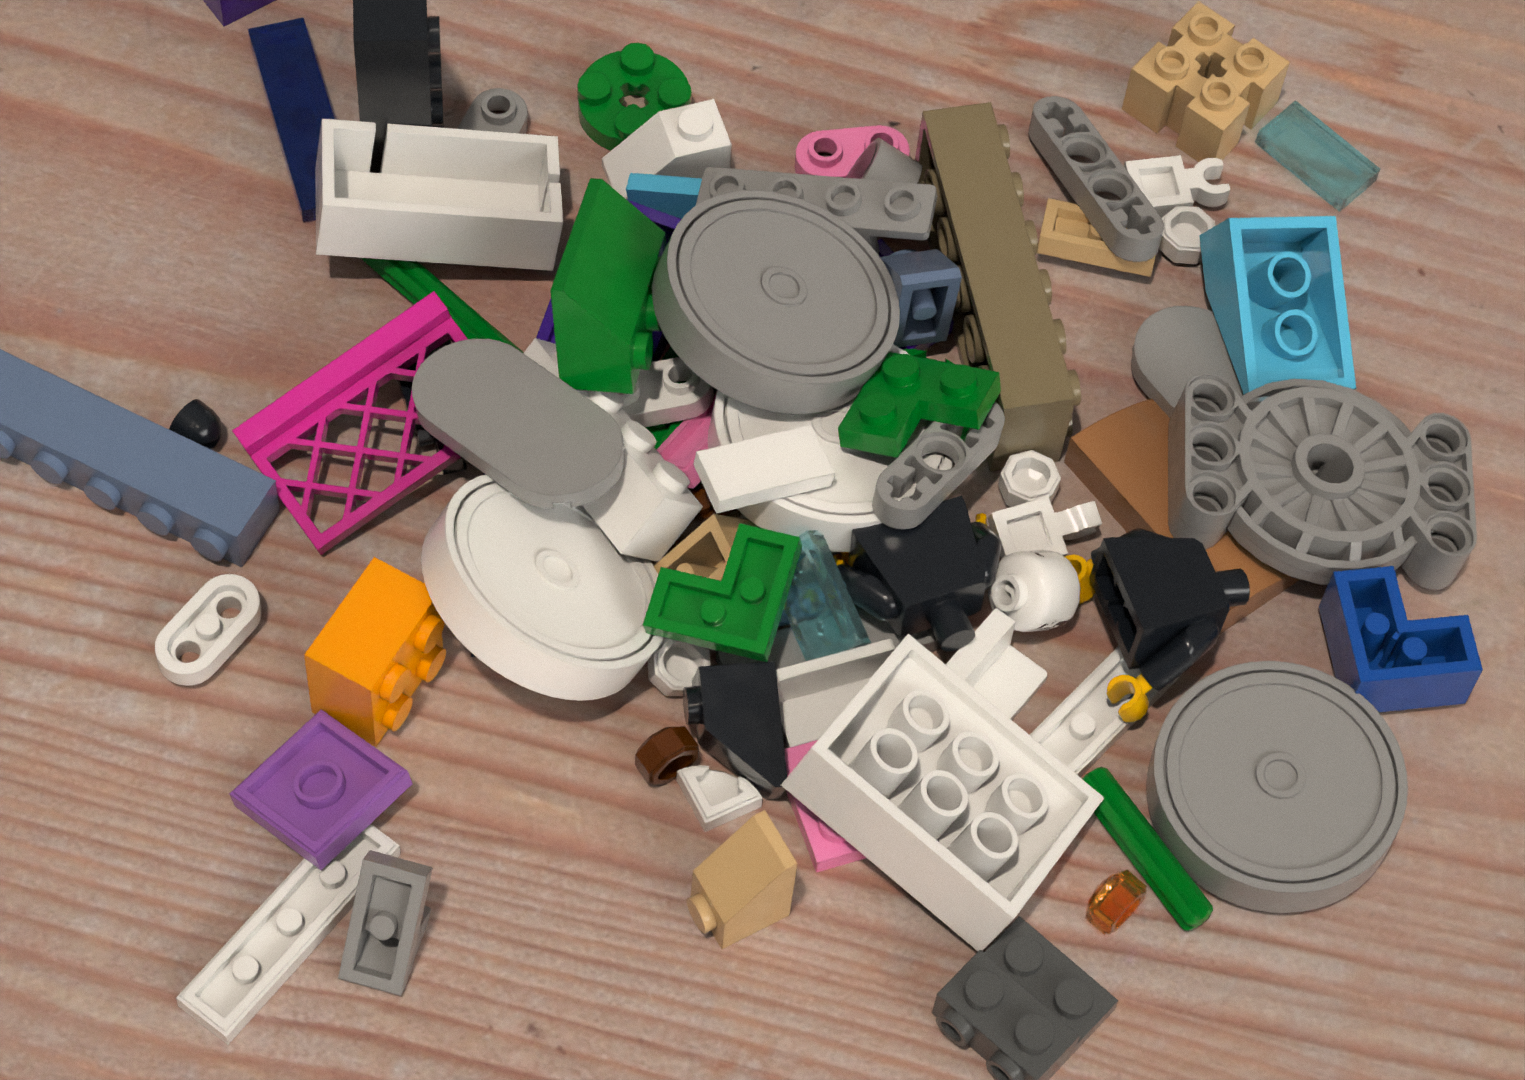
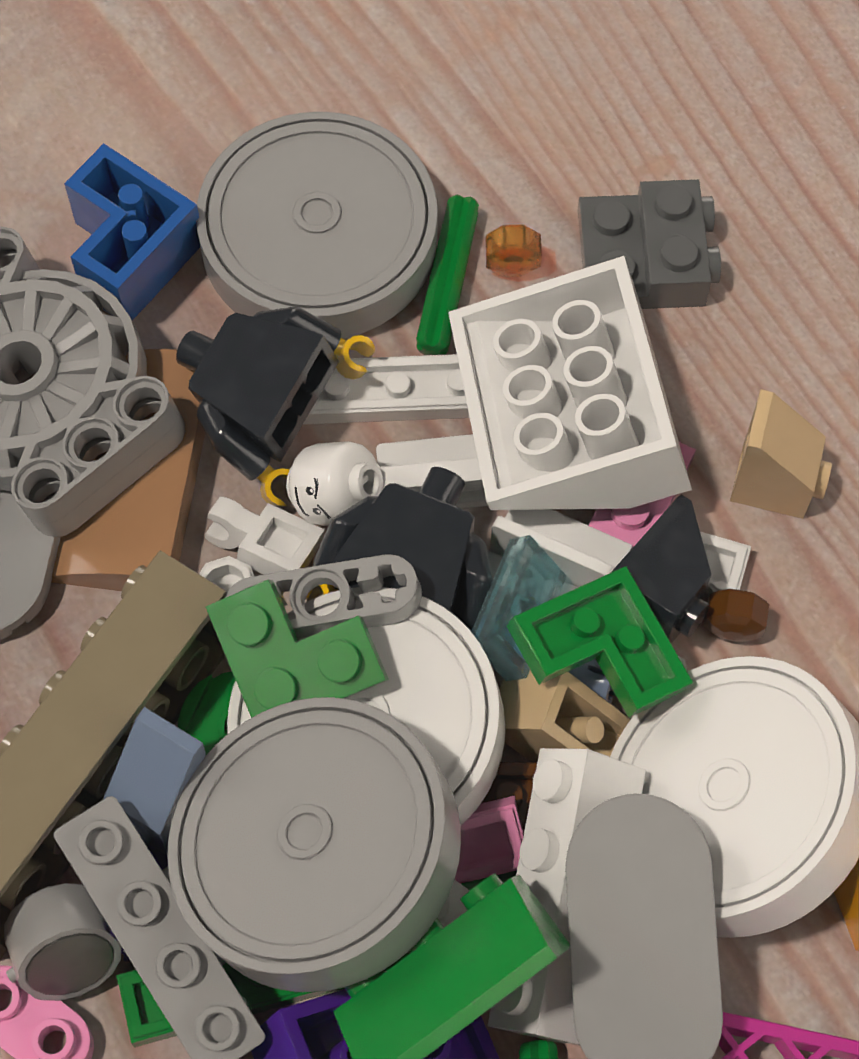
camera: 130 degrees left, 5 degrees up
(763, 468) = (479, 704): white tile -> none

